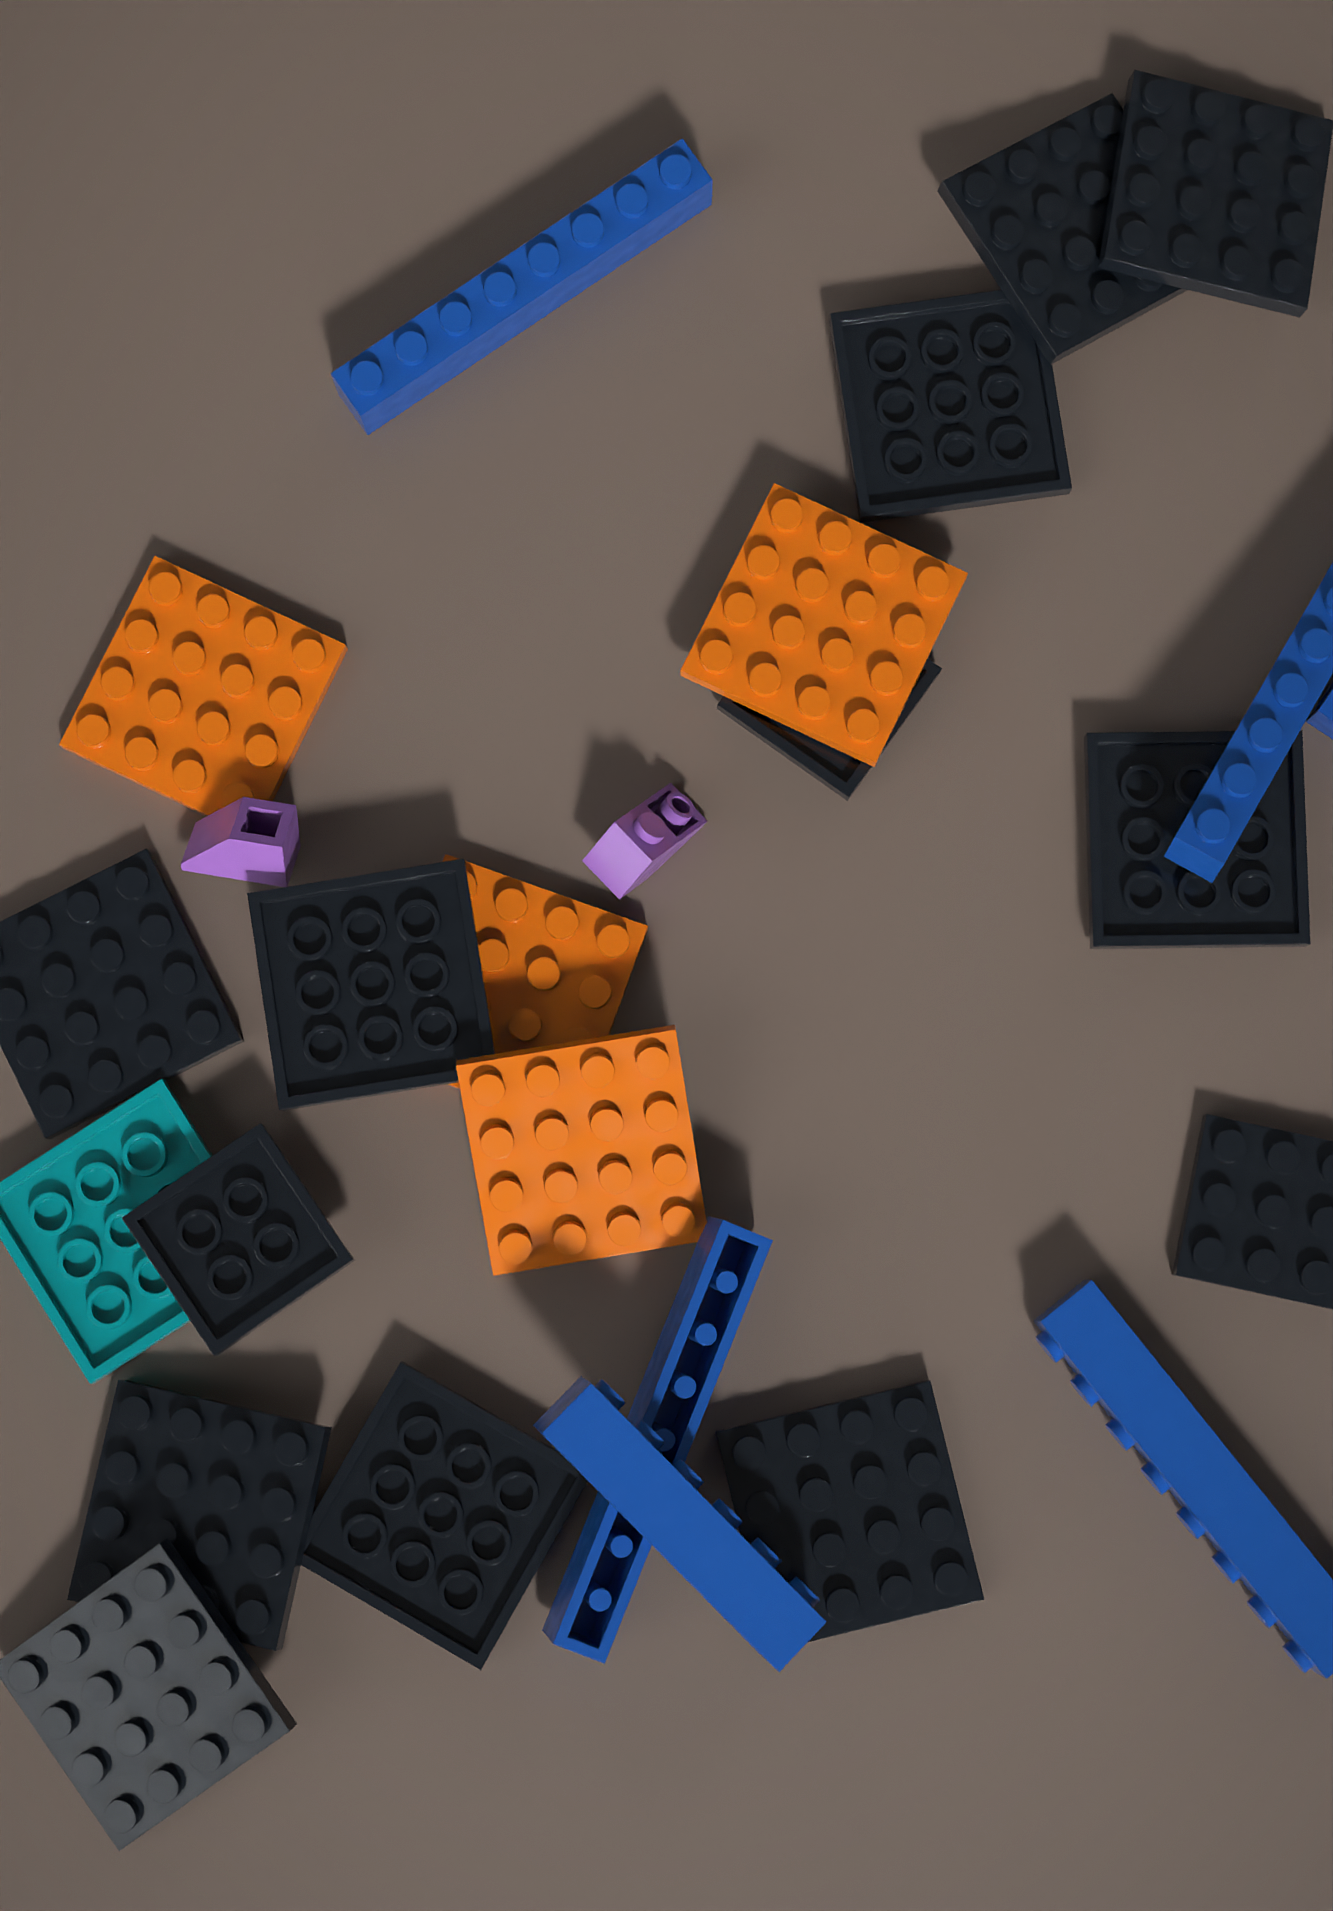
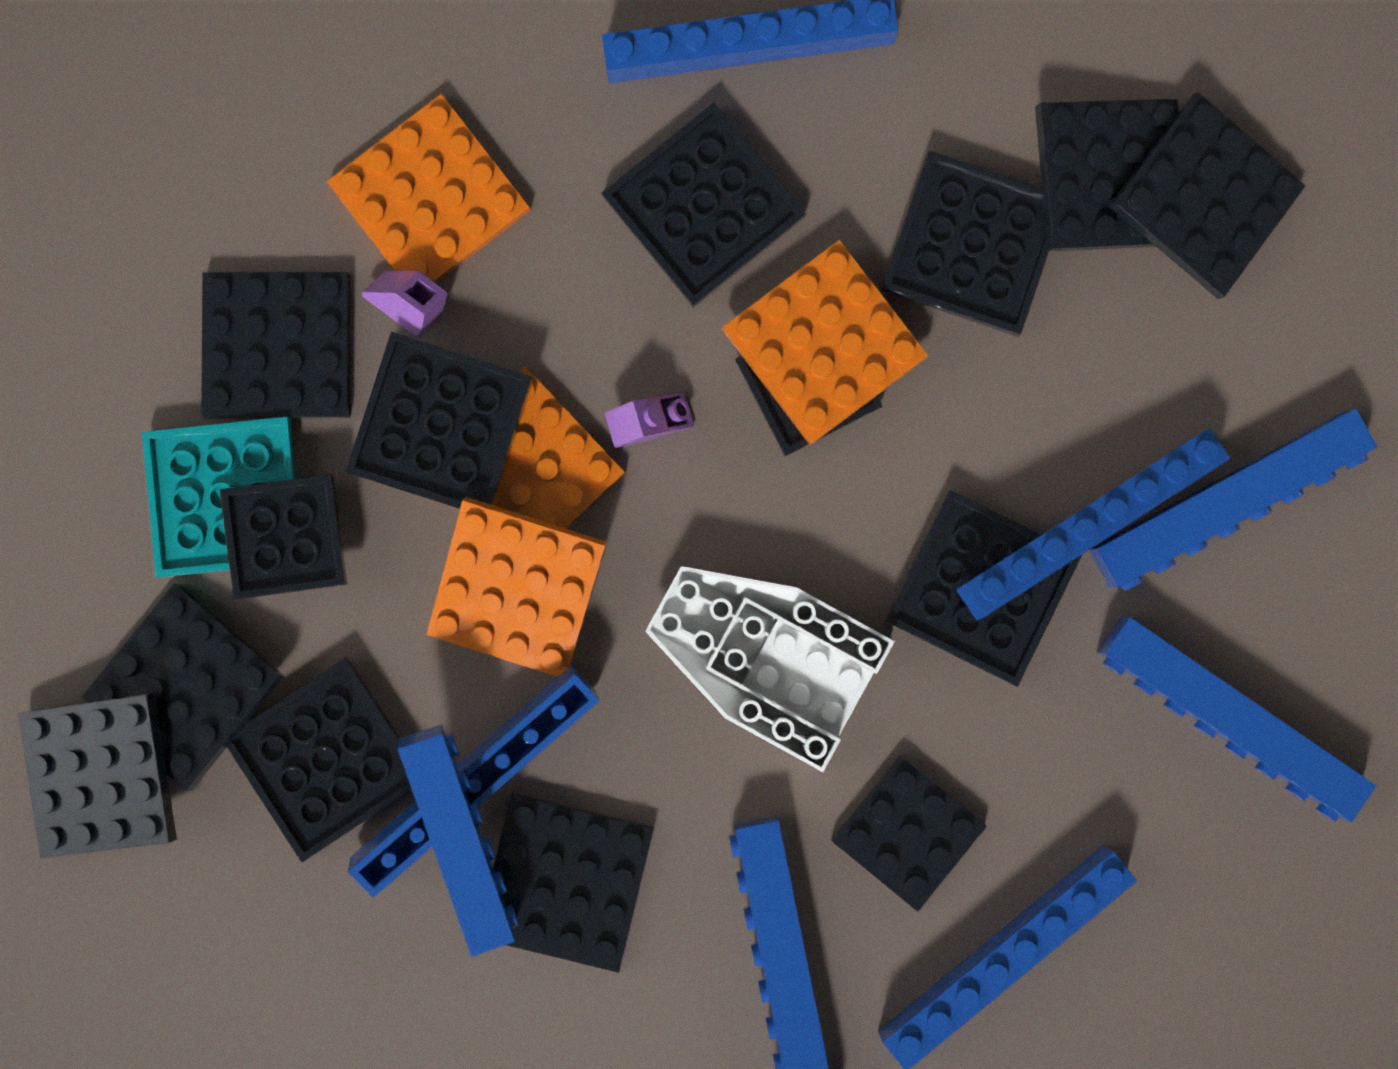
camera: 30 degrees right, 5 degrees up
(572, 528) = (703, 204): none -> black plate
(966, 1069) = (769, 657): none -> white wedge

